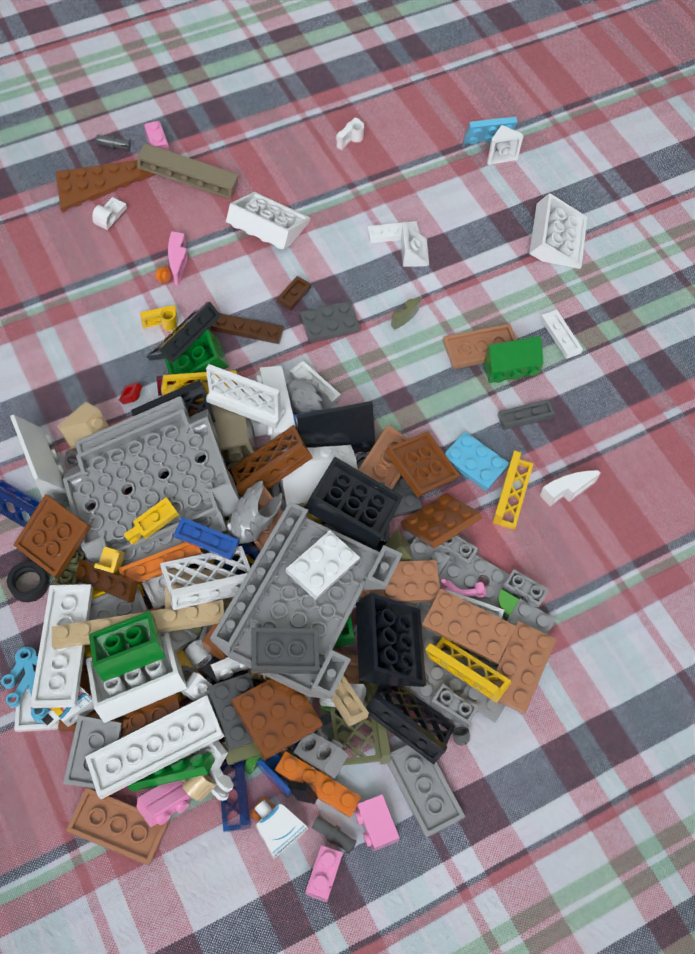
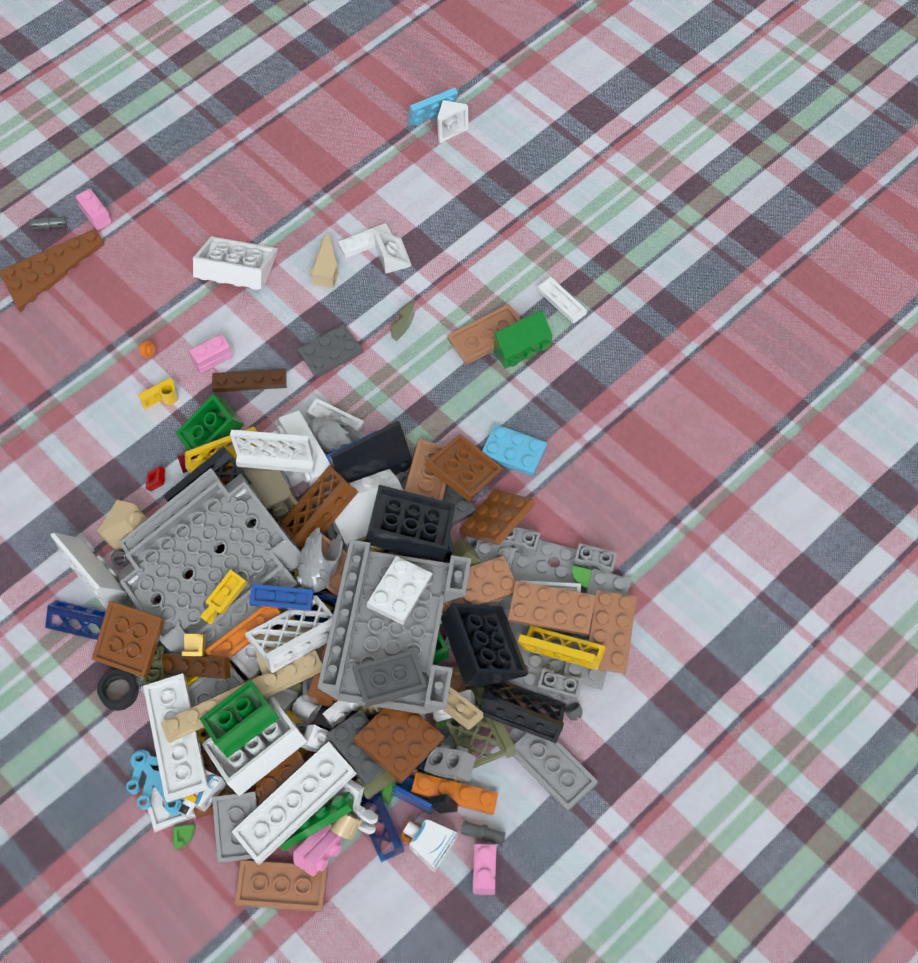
camera: 10 degrees left, 0 degrees up
(40, 744) = (183, 835): none -> bright green tile
(108, 214) = (69, 301): white plate -> none
(177, 255) = (155, 325): bright pink slope -> none
(185, 333) = (191, 404): black fence -> none
(187, 171) = (136, 234): dark tan brick -> none
(219, 293) = (210, 353): none -> bright pink brick
(294, 293) = (285, 331): reddish brown plate -> none
(348, 247) = (325, 269): none -> tan slope
(352, 132) = (292, 145): white plate -> none
(376, 822) = (519, 811): bright pink brick -> none
(479, 590) = (552, 573): bright pink piece -> none
(507, 487) = (551, 466): yellow fence -> none
(526, 414) = (549, 390): dark grey tile -> none
(558, 233) = (530, 197): white slope -> none
(568, 486) = (609, 449): white slope -> none

